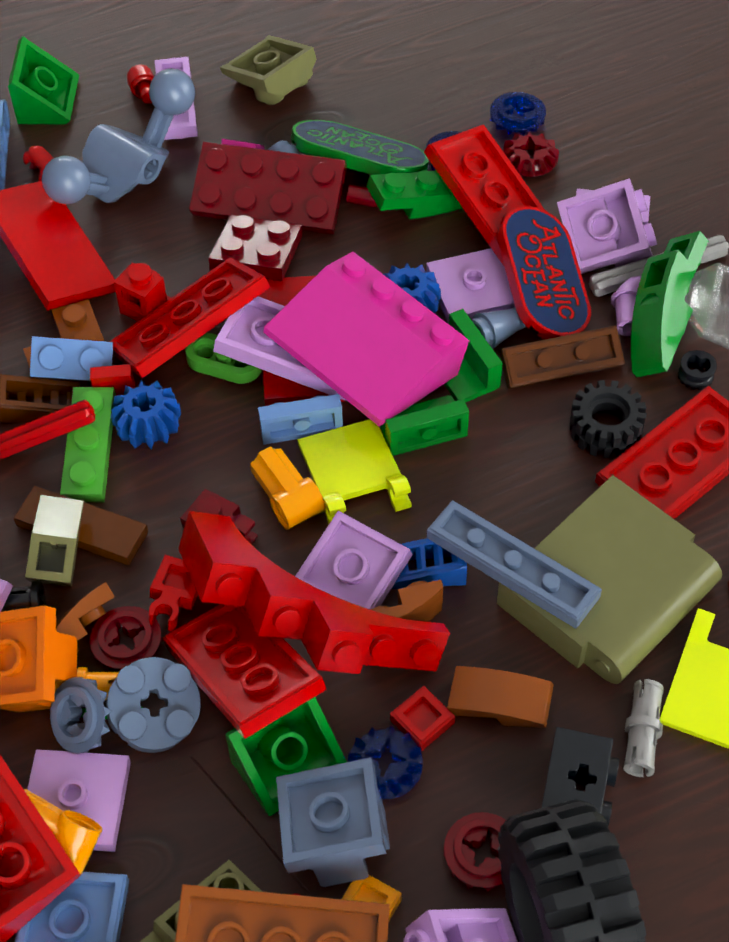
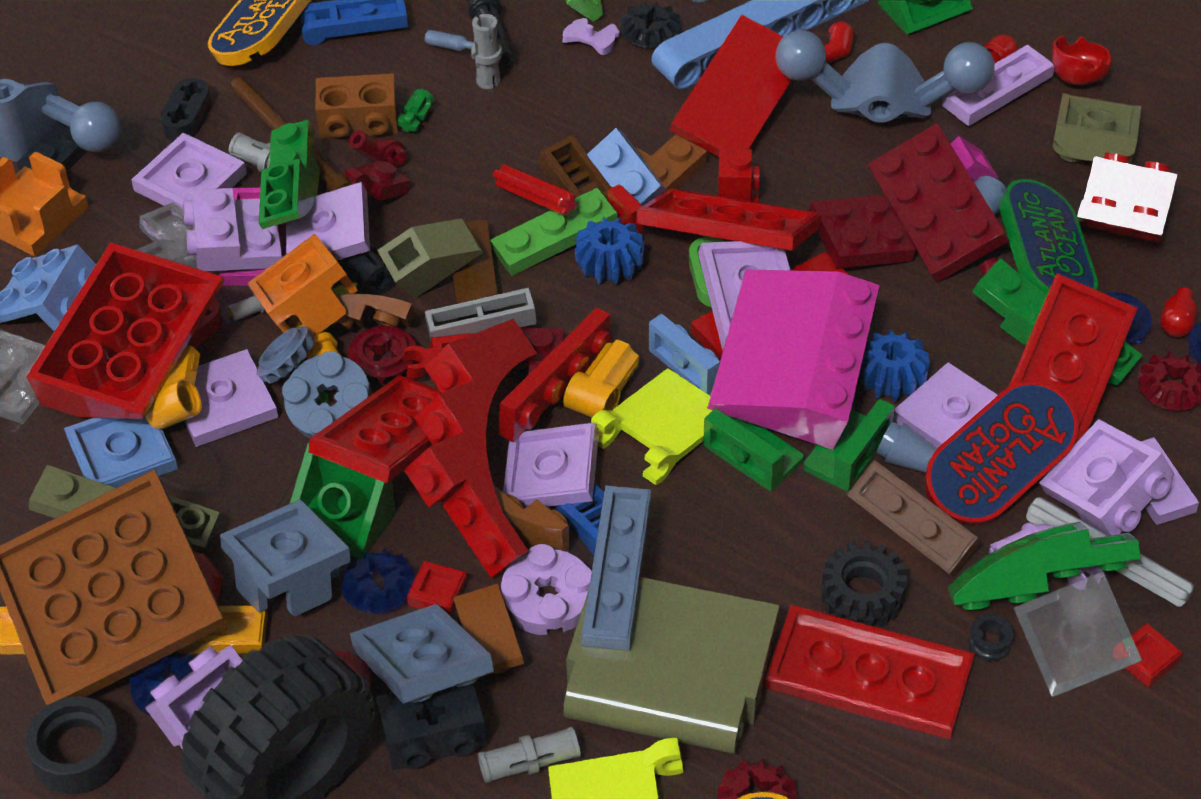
camera: 60 degrees right, 5 degrees down
(156, 542) = (522, 315): none -> light grey piece
(196, 41) = (1080, 62): none -> red hair
(257, 504) = (551, 377): none -> red plate
(359, 81) = (1127, 197): none -> bracket
(472, 115) = (1179, 313): none -> red cylinder
(486, 612) = (543, 568): none -> lavender plate
(513, 756) = (421, 653): none -> sand blue plate

